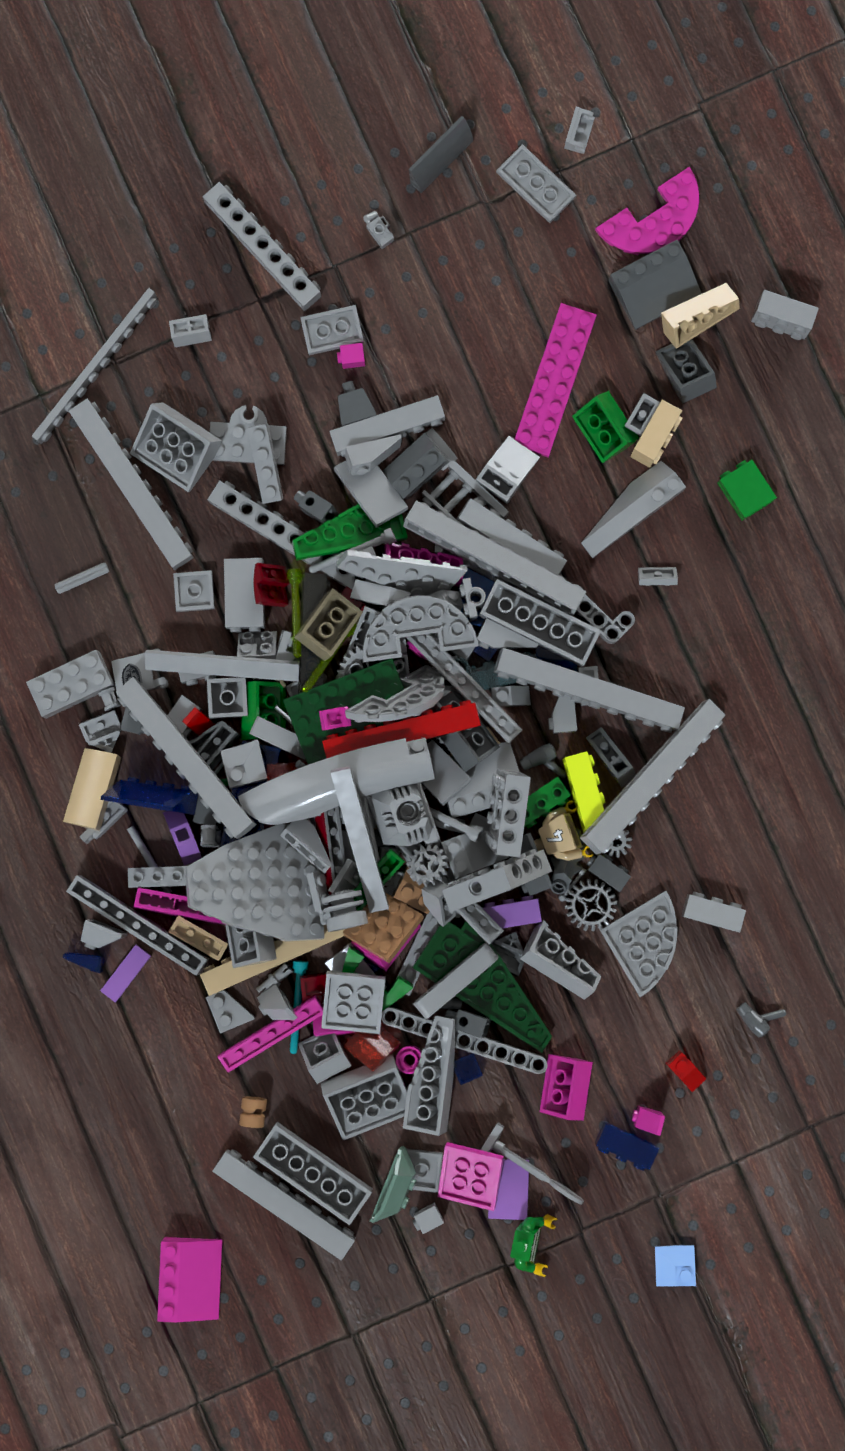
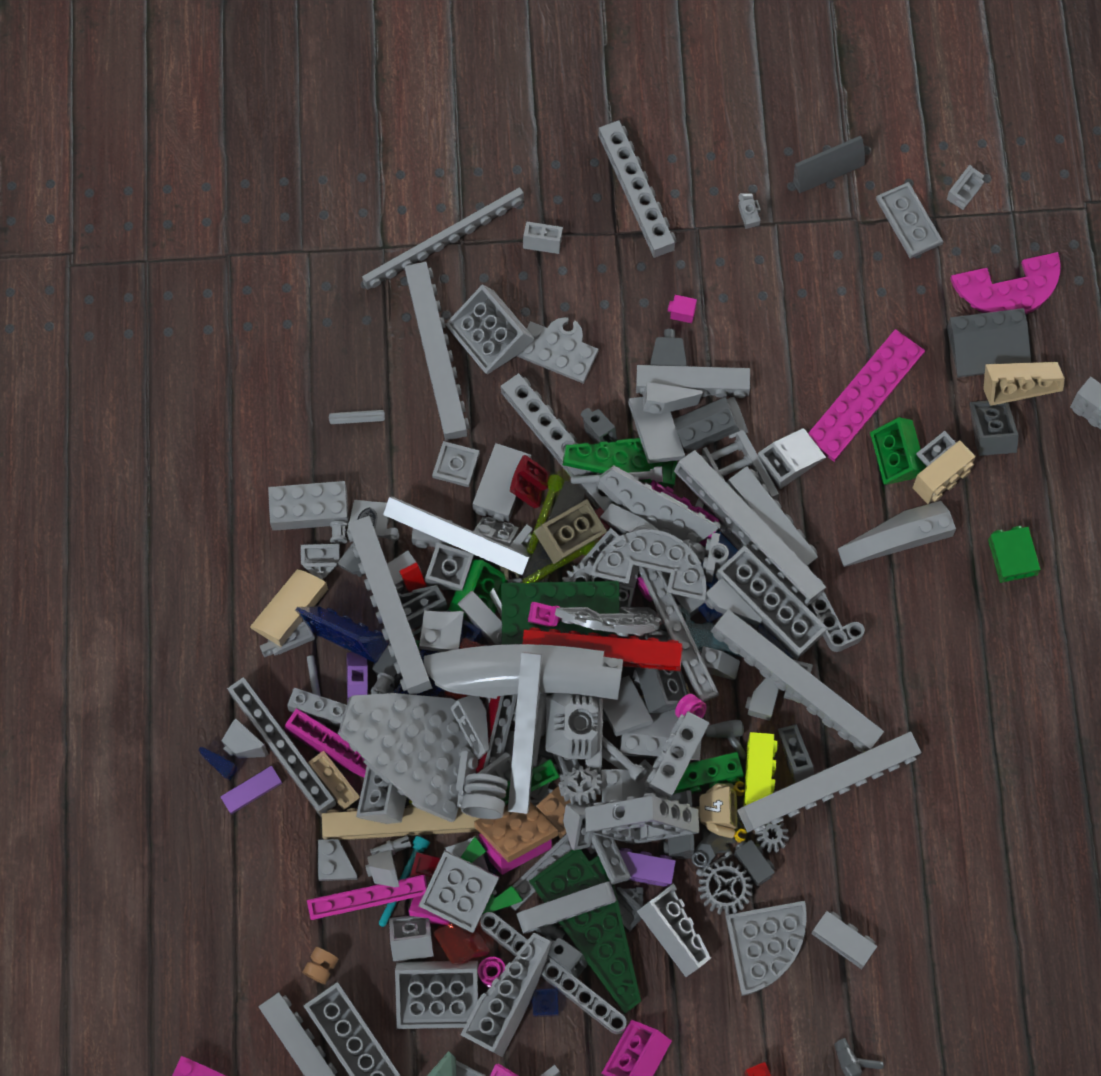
camera: 15 degrees right, 15 degrees down
(265, 463) = (566, 372): light grey brick -> none
(331, 329) = (672, 279): light grey plate -> none
(502, 755) = (691, 704): none -> dark pink wheel
(657, 576) = (901, 603): light grey plate -> none

